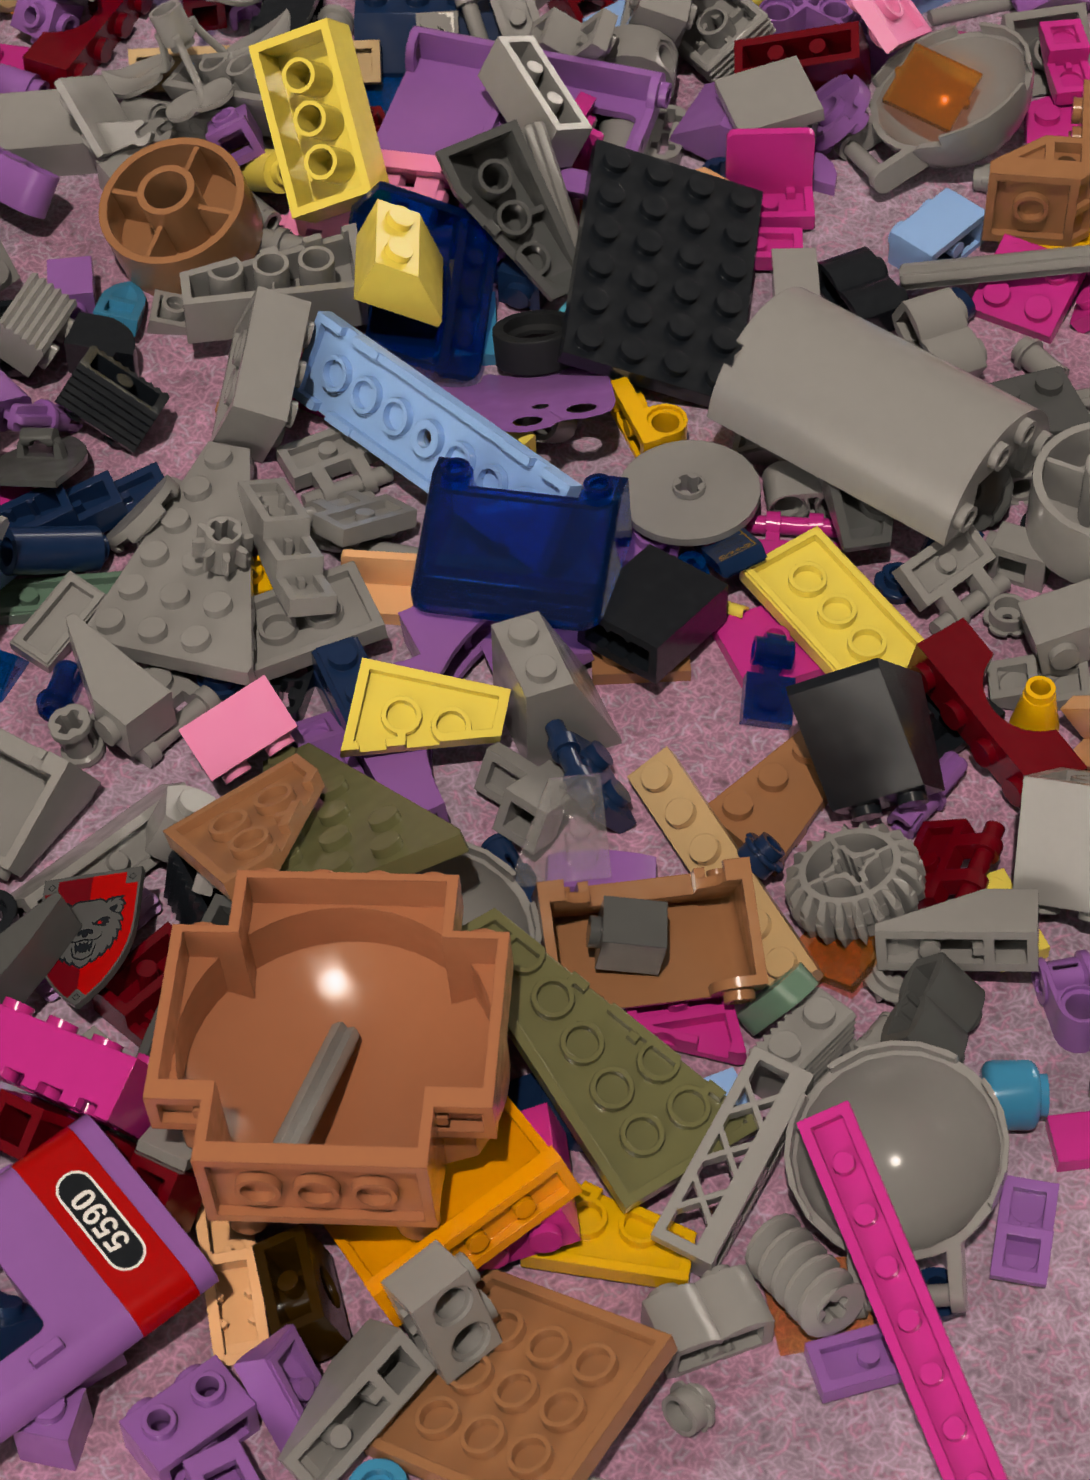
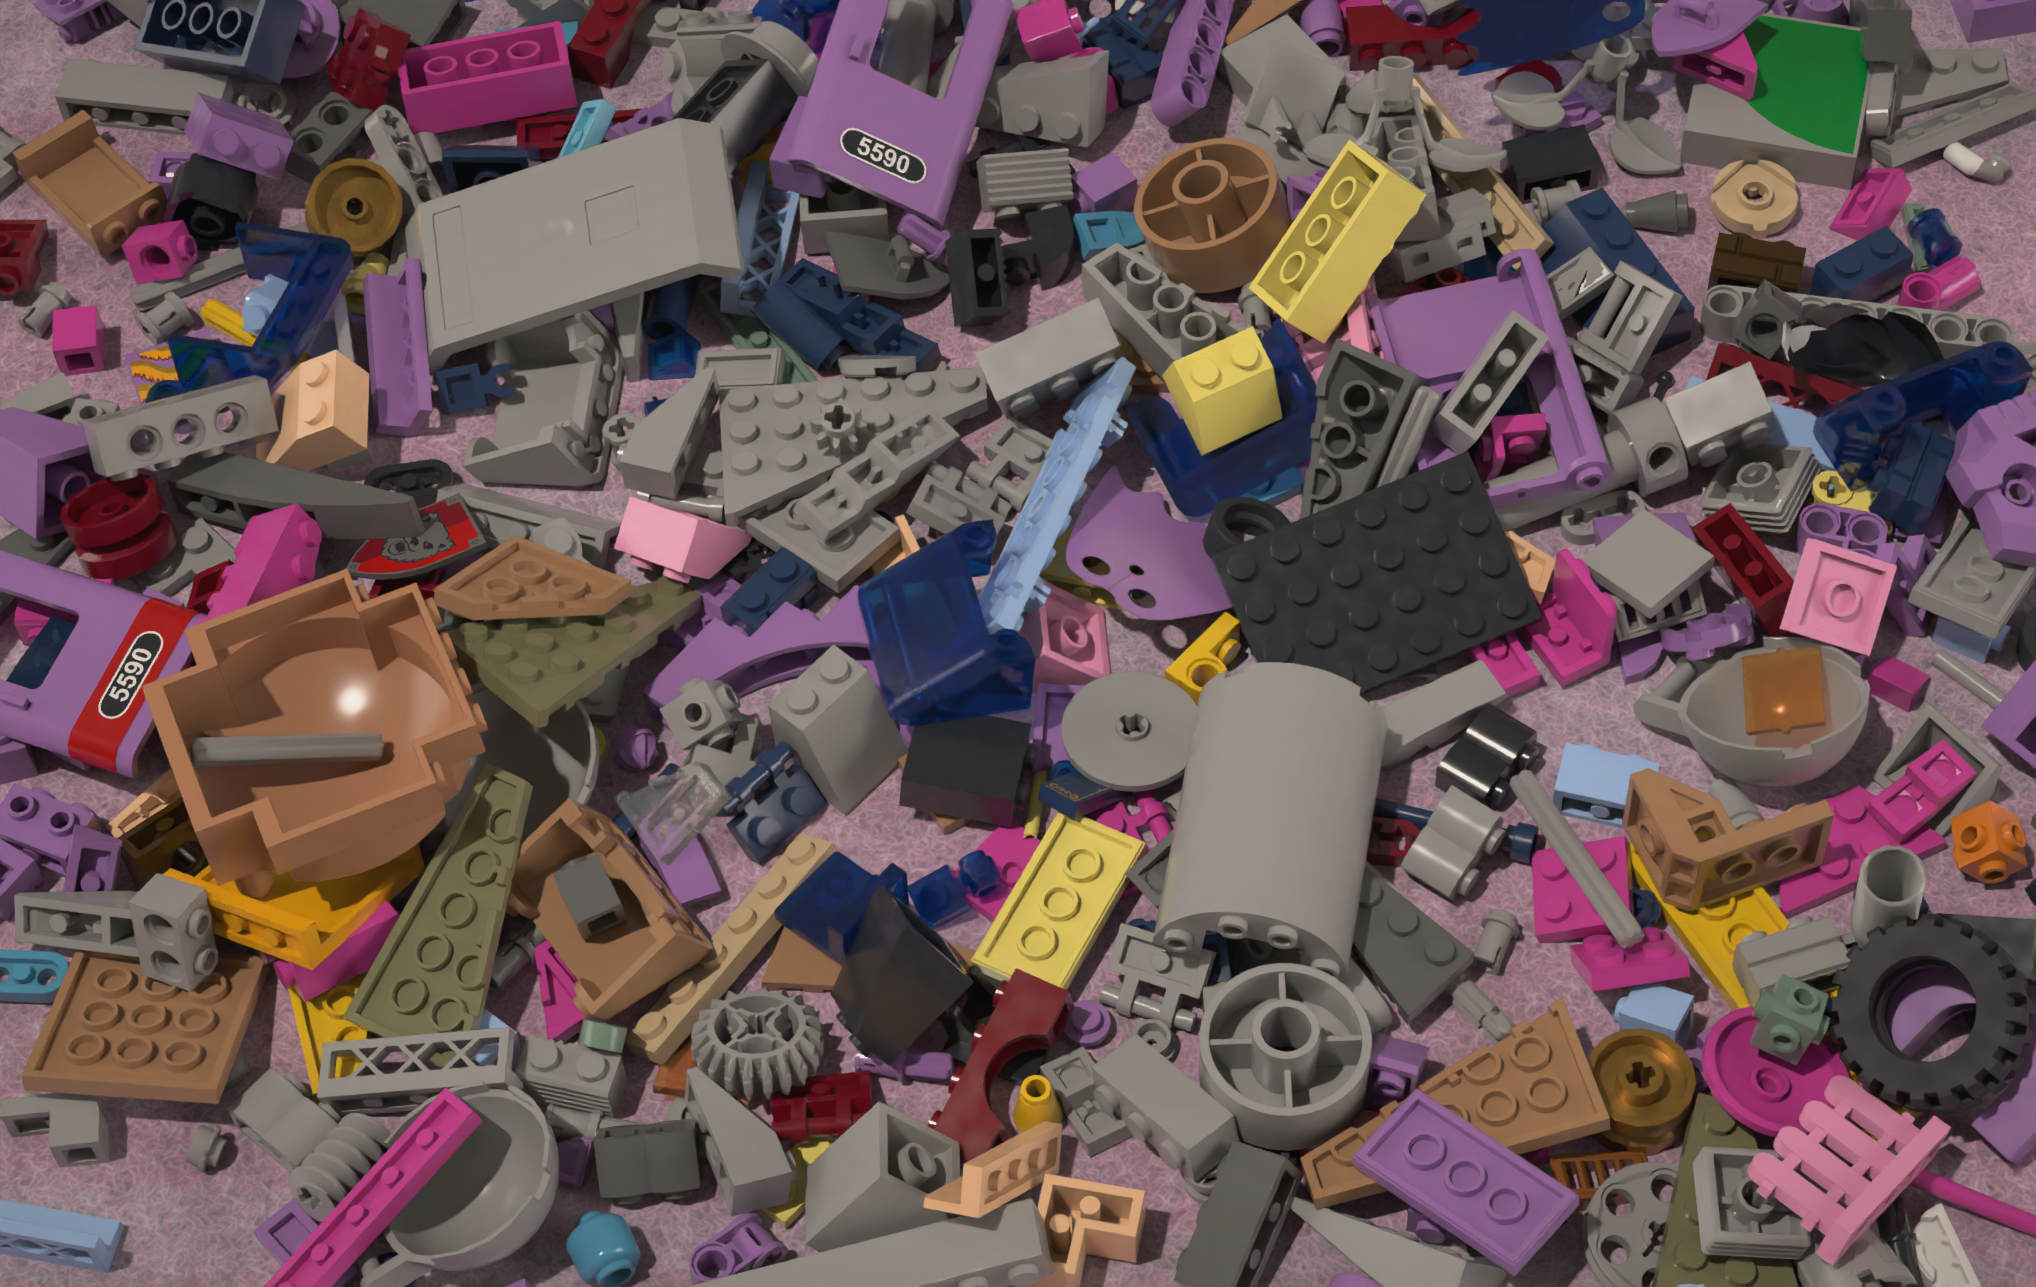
camera: 65 degrees right, 5 degrees up
(420, 710) = (743, 642): light yellow wing -> none
(478, 768) = (703, 713): none -> light grey brick
(566, 35) = (1604, 377): light grey brick -> none
(754, 758) = (834, 901): none -> clear blue bracket
(763, 854) = (743, 959): dark blue plate -> none

